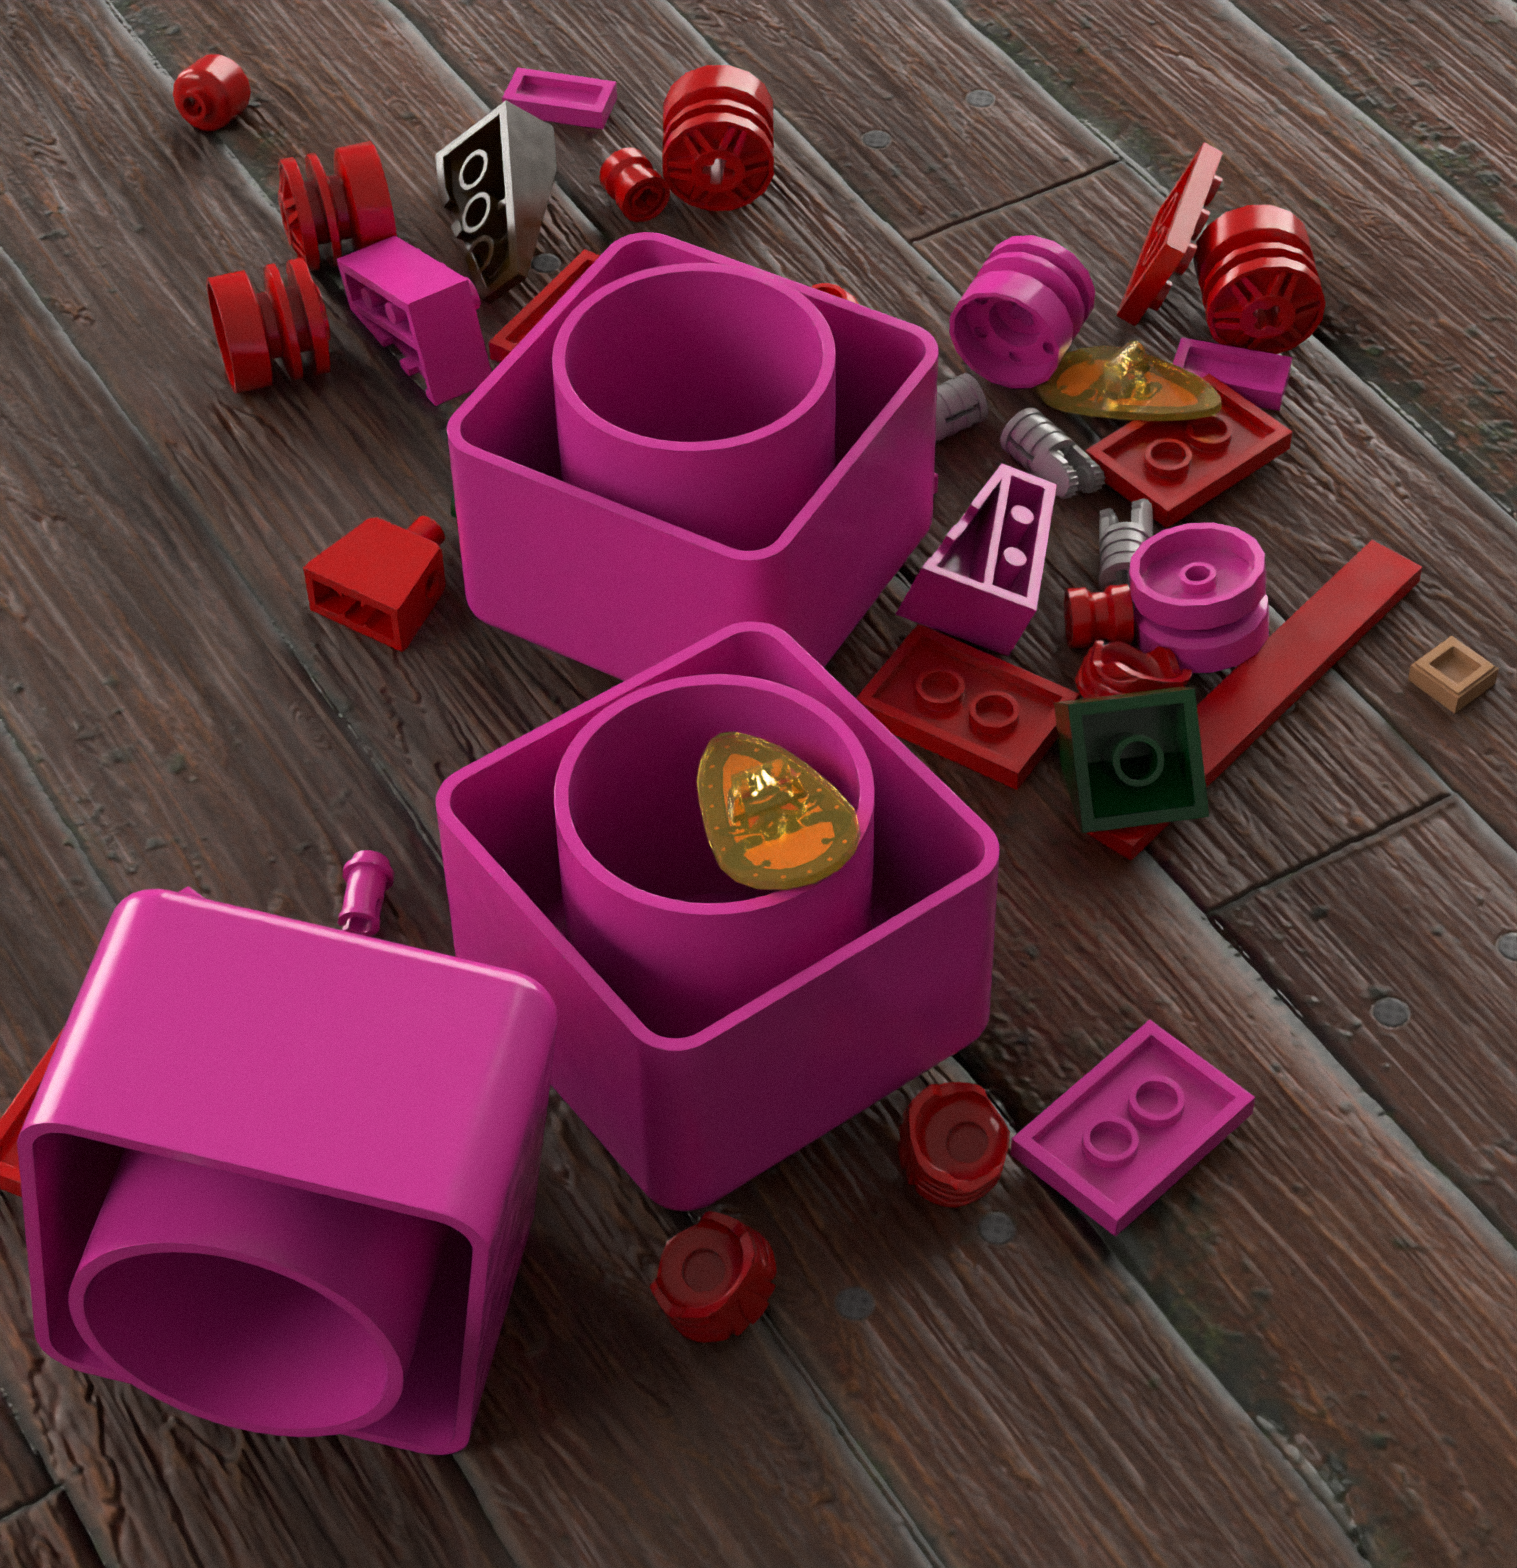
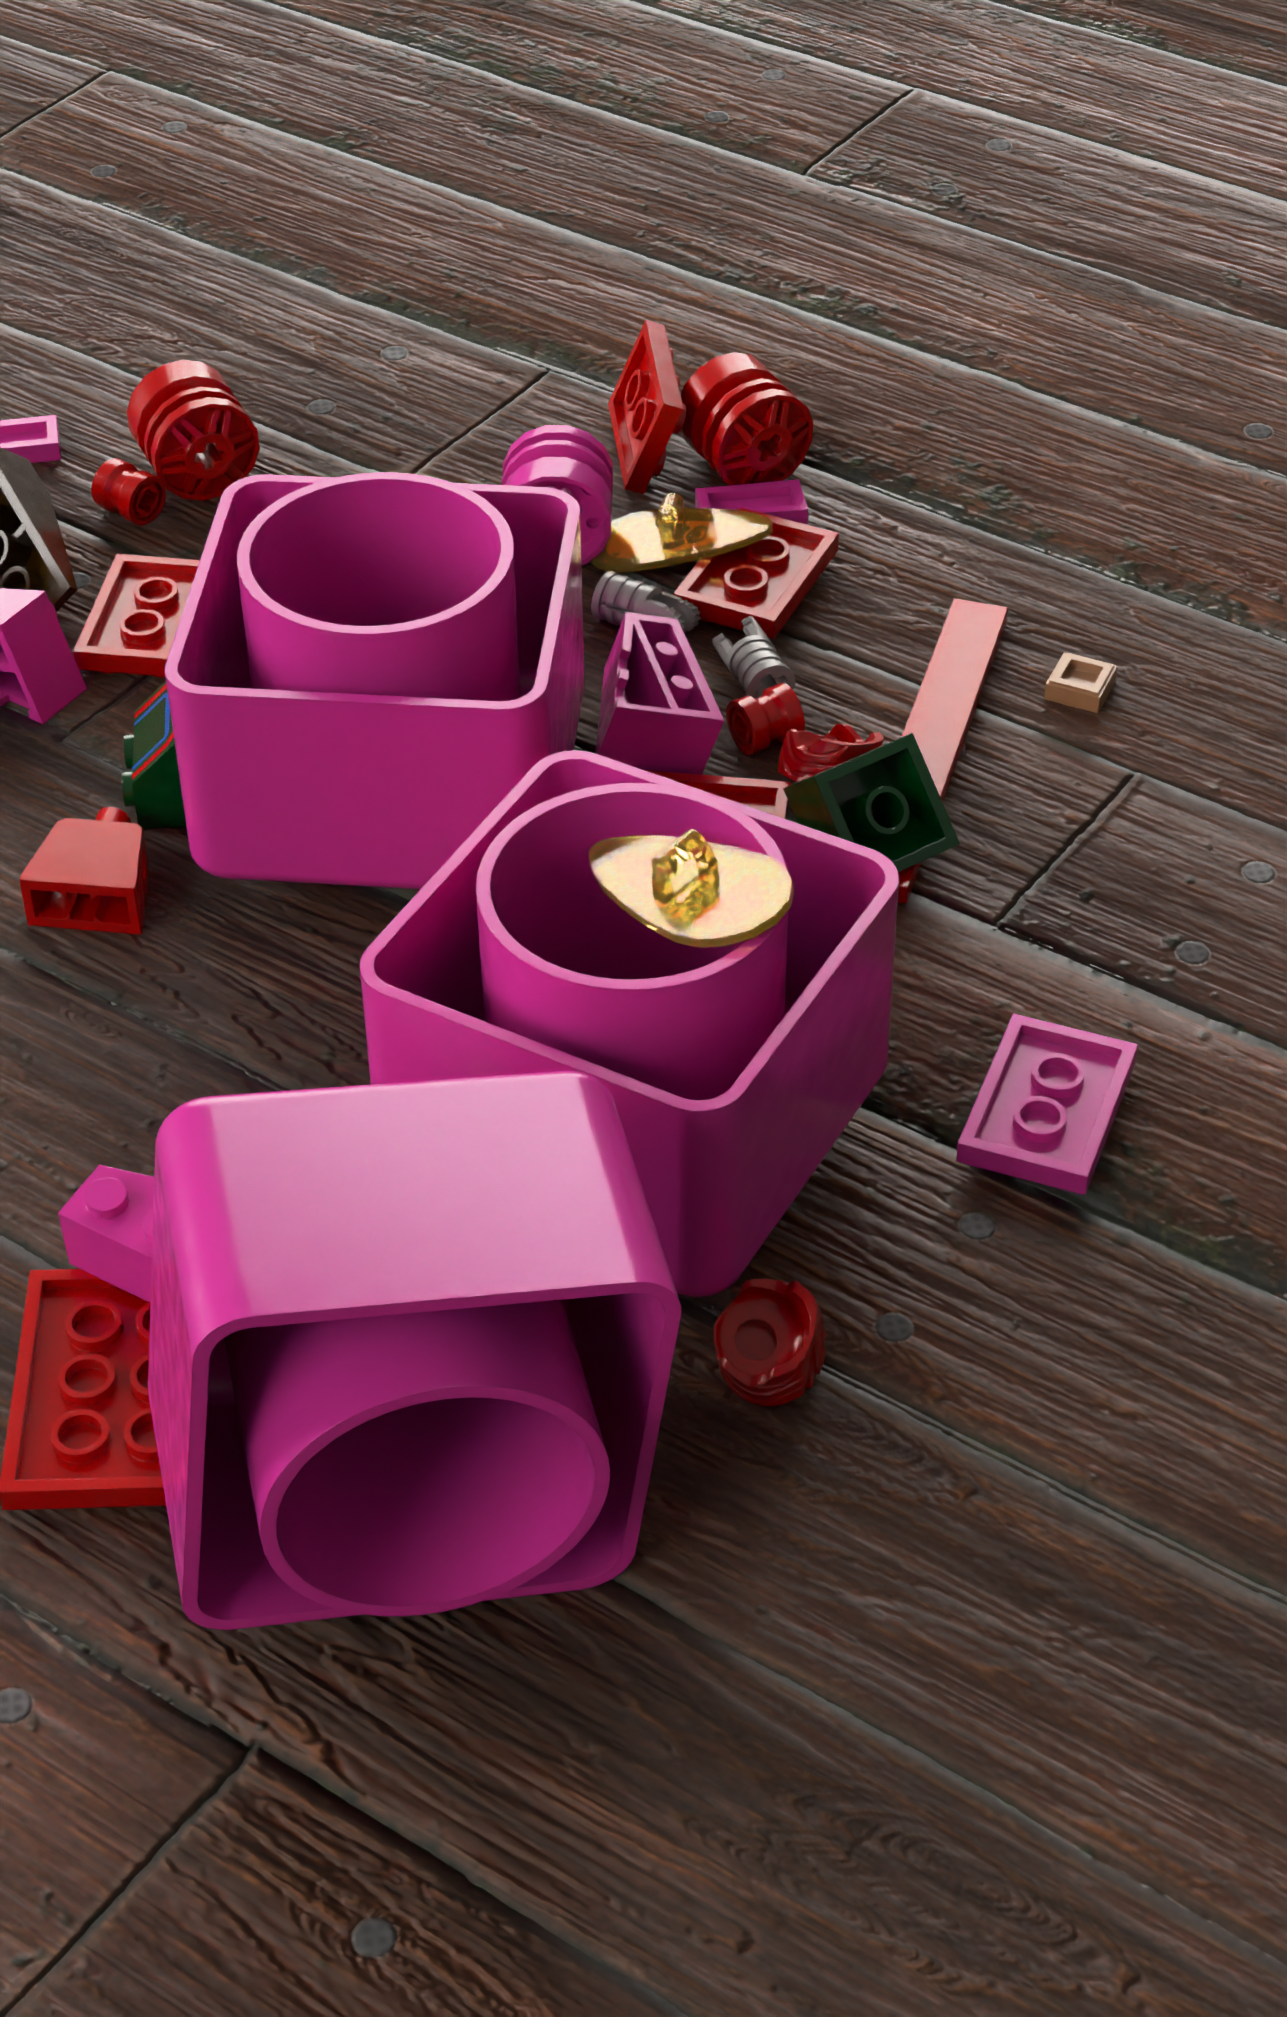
camera: 25 degrees left, 5 degrees down
(952, 1144) = (907, 1165): red hair -> none
(1201, 595) = (851, 671): dark pink wheel -> none

